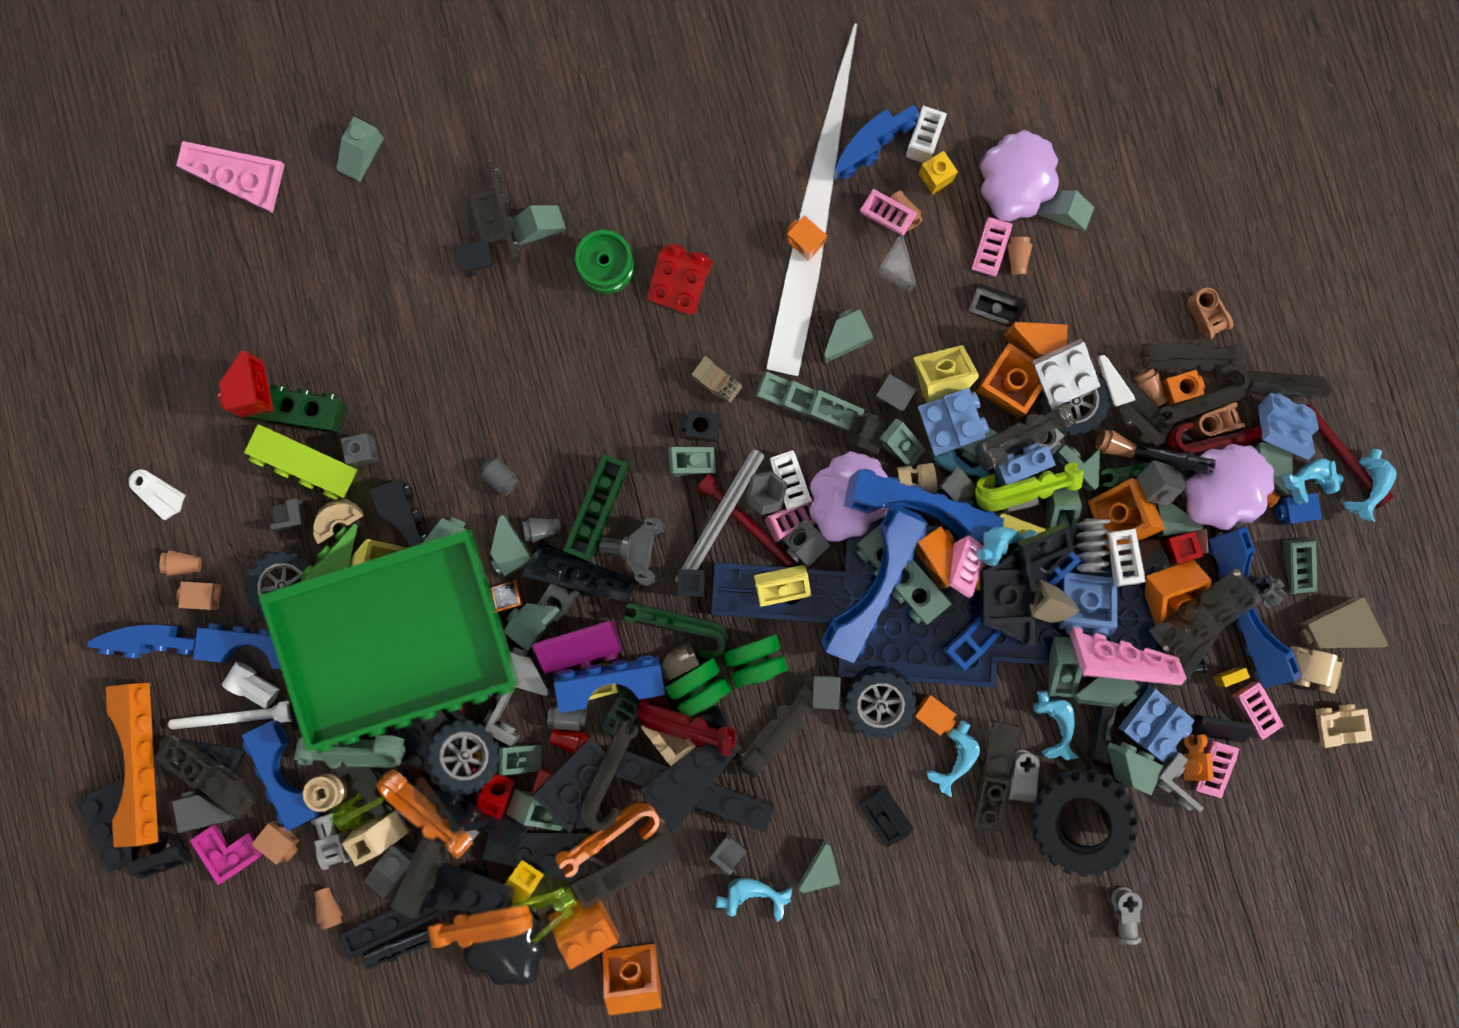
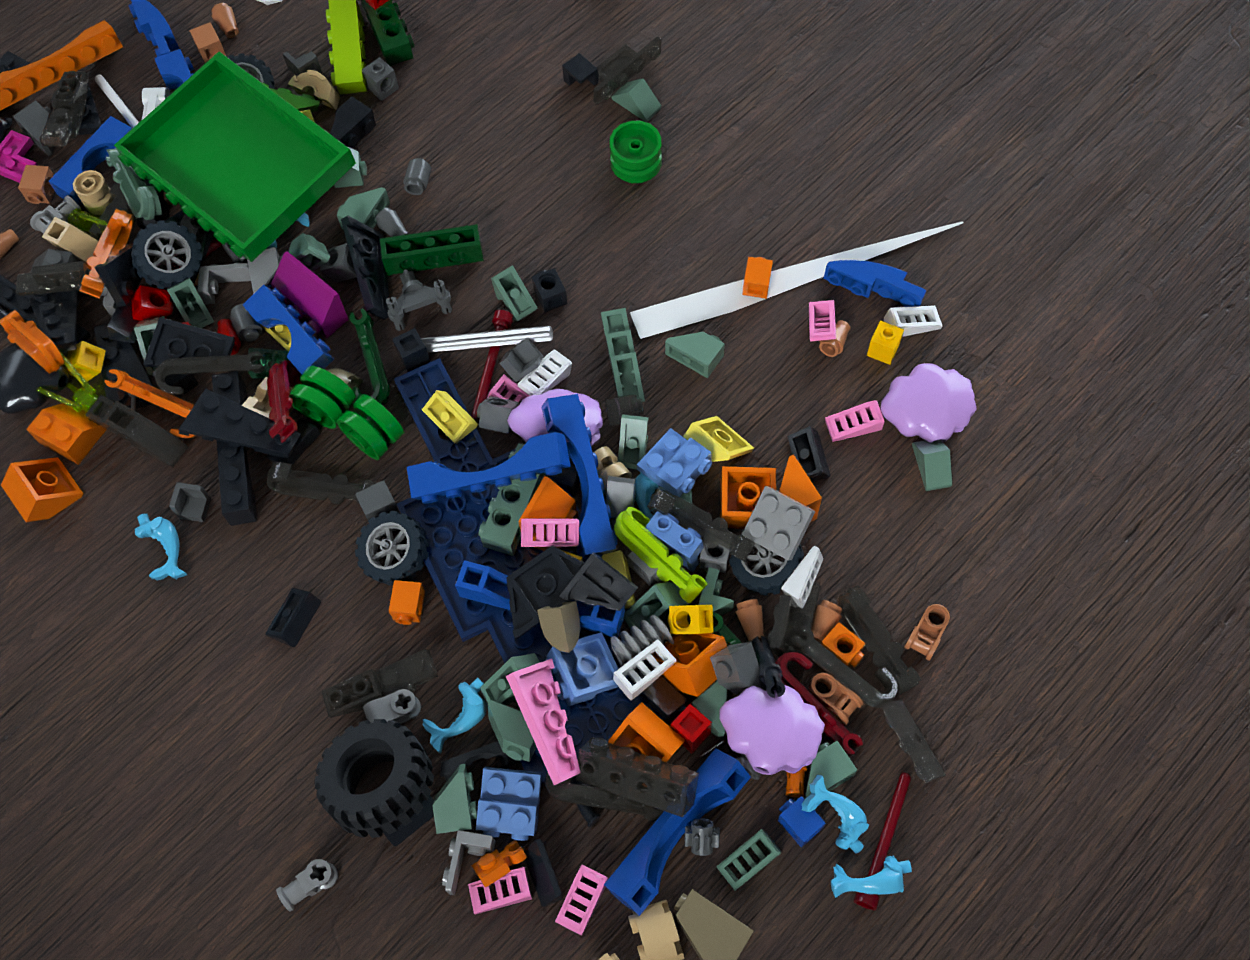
camera: 60 degrees right, 20 degrees down
(507, 596) = (323, 232): slope -> none
(679, 278) = (660, 208): red bracket -> none
(716, 380) = (594, 278): dark tan leg -> none
(821, 871) = (215, 585): sand green slope -> none
(895, 393) = (673, 411): dark grey panel -> none
(898, 267) = (786, 355): clear slope -> none
(968, 753) = (390, 650): medium azure animal -> none
(997, 541) = (584, 542): medium azure animal -> none
(1019, 254) = (865, 444): nougat cone -> none
(1101, 485) = (700, 616): none -> yellow brick
(1231, 676) = (597, 850): yellow tile -> none
(1288, 424) = (871, 757): medium blue plate -> none

